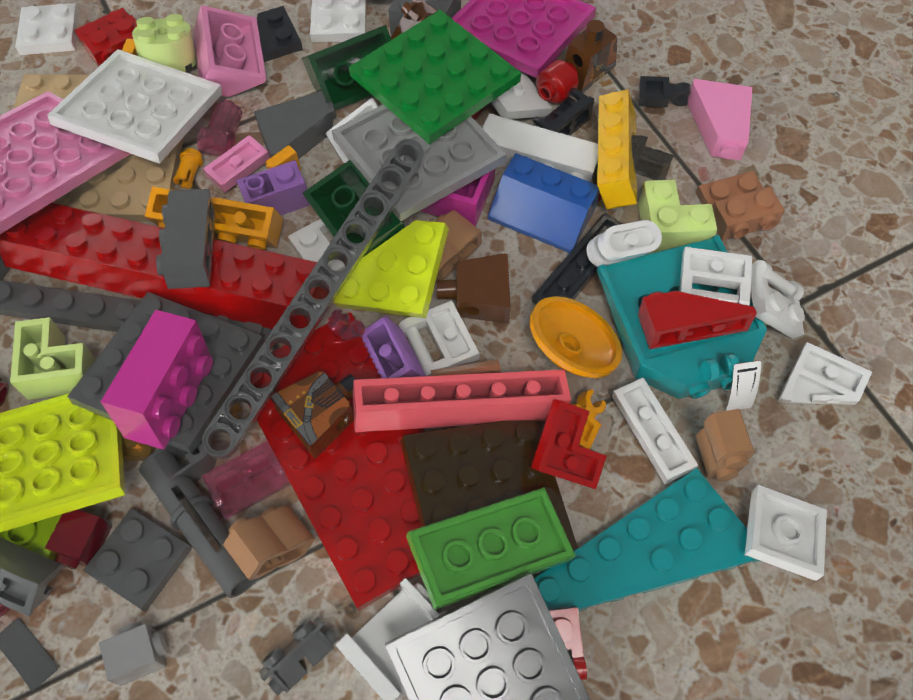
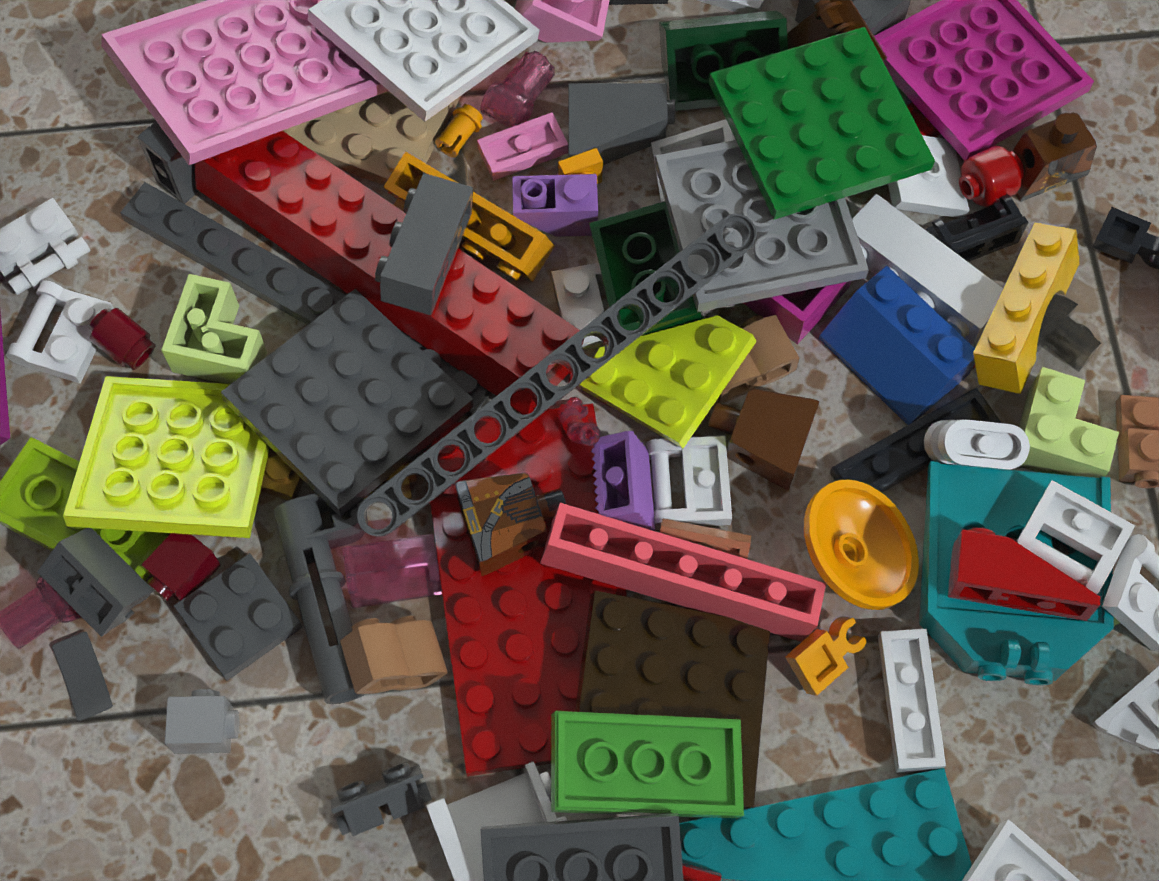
camera: 20 degrees right, 5 degrees up
(158, 380) = (334, 418): dark pink brick -> none
(560, 449) = (779, 678): red plate -> none
(724, 445) = (987, 754): medium nougat brick -> none
(744, 385) = (1048, 689): white sticker -> none

